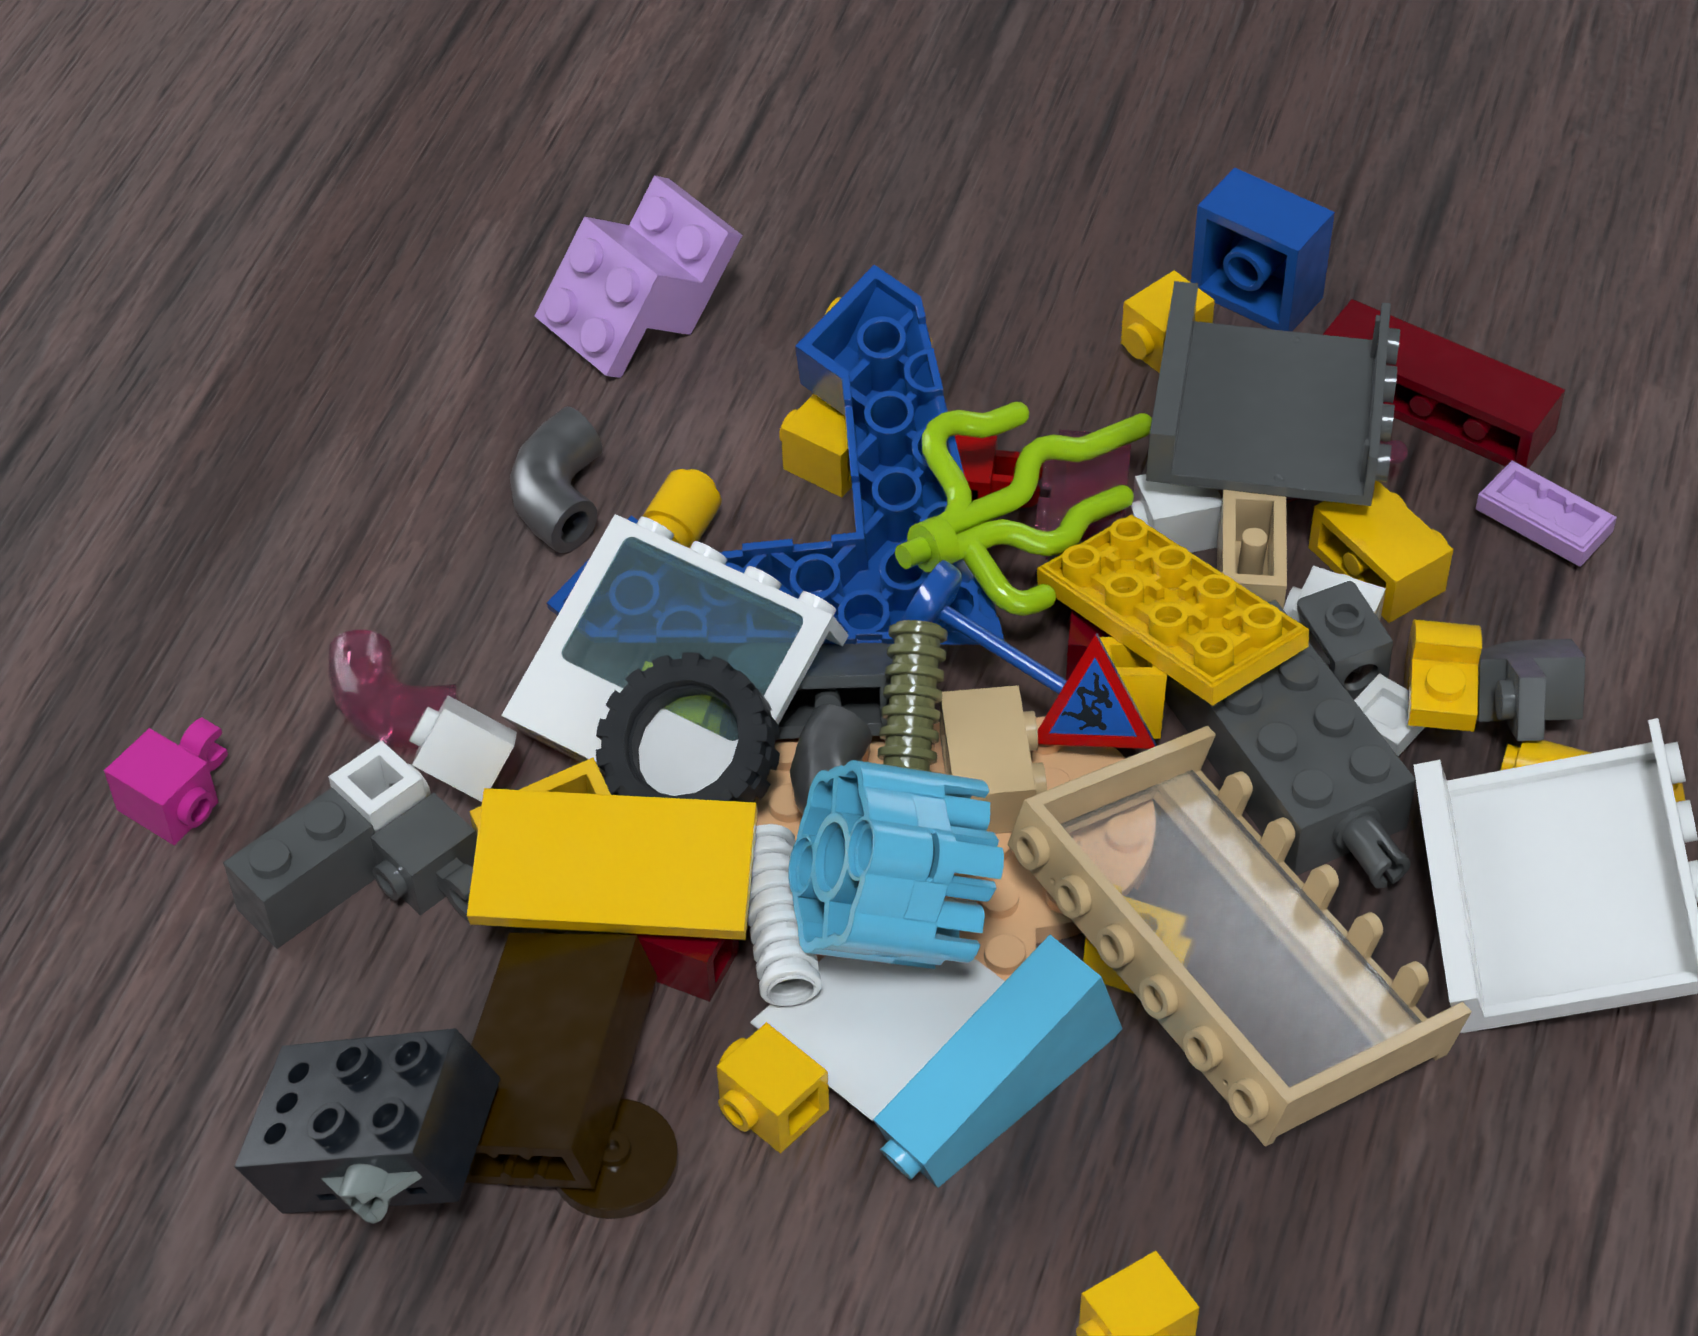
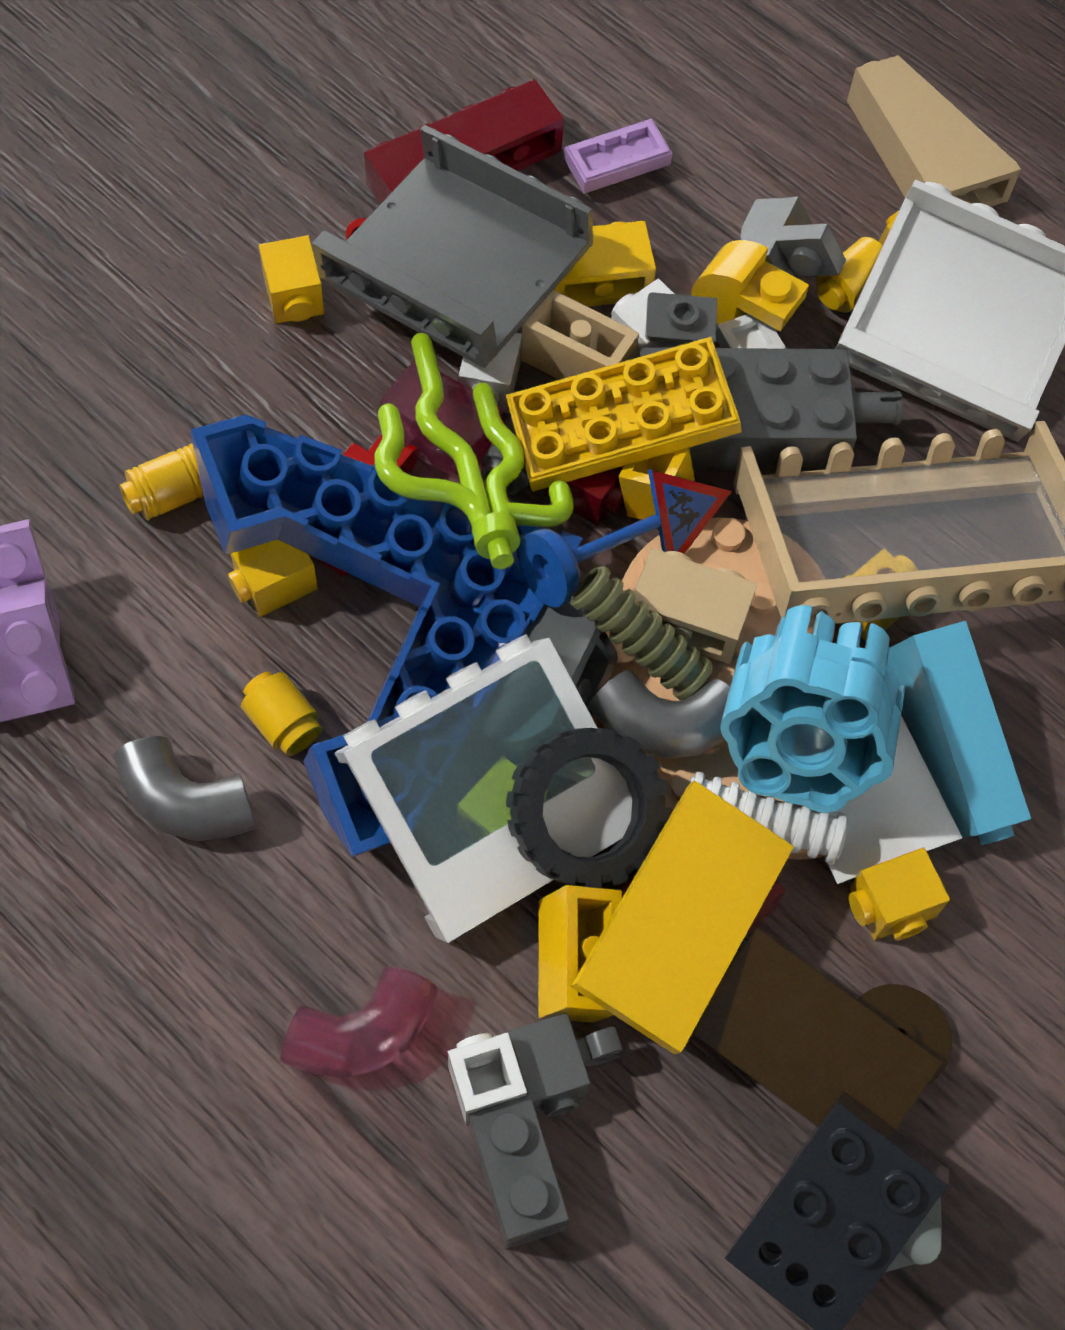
camera: 70 degrees left, 15 degrees up
(168, 783) = (355, 1261): dark pink brick -> none
(462, 746) = (468, 987): white brick -> none
(1261, 250) = (277, 179): blue brick -> none

